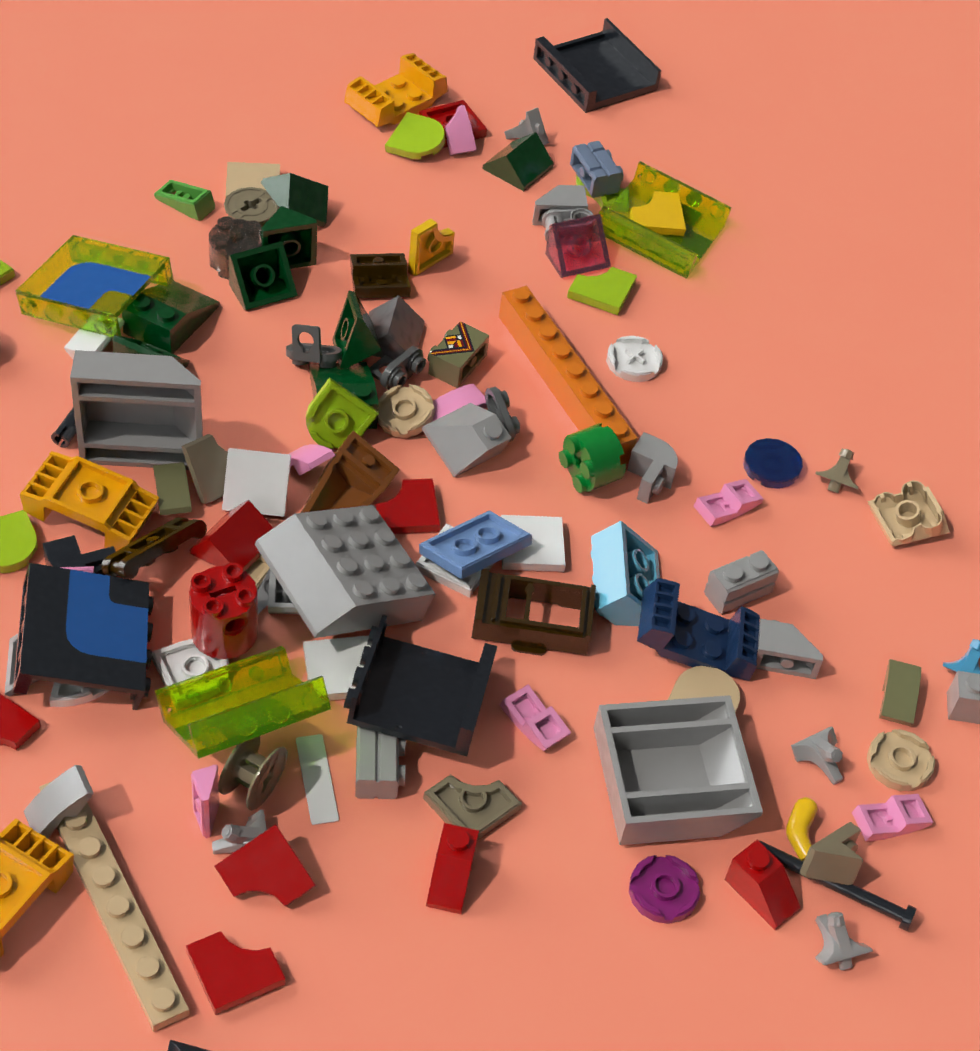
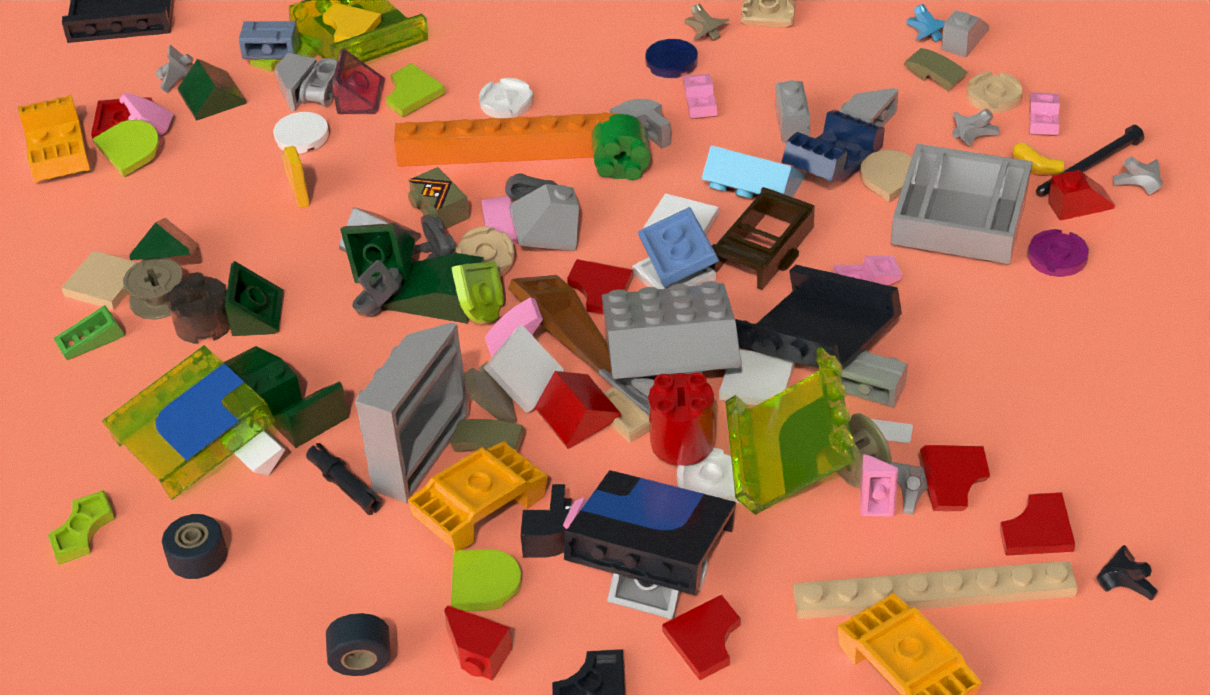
camera: 55 degrees left, 5 degrees down
(59, 799) = (830, 591): light grey slope -> none
(152, 545) = (566, 458): dark brown plate -> none
(297, 234) = (219, 251): dark green slope -> none
(380, 275) = (296, 225): dark brown slope -> none
(452, 868) = (996, 360): red slope -> none
(472, 806) = (936, 339): dark tan tile -> none
(501, 236) = (301, 130): none -> white tile
(834, 857) = (1075, 147): dark tan slope -> none

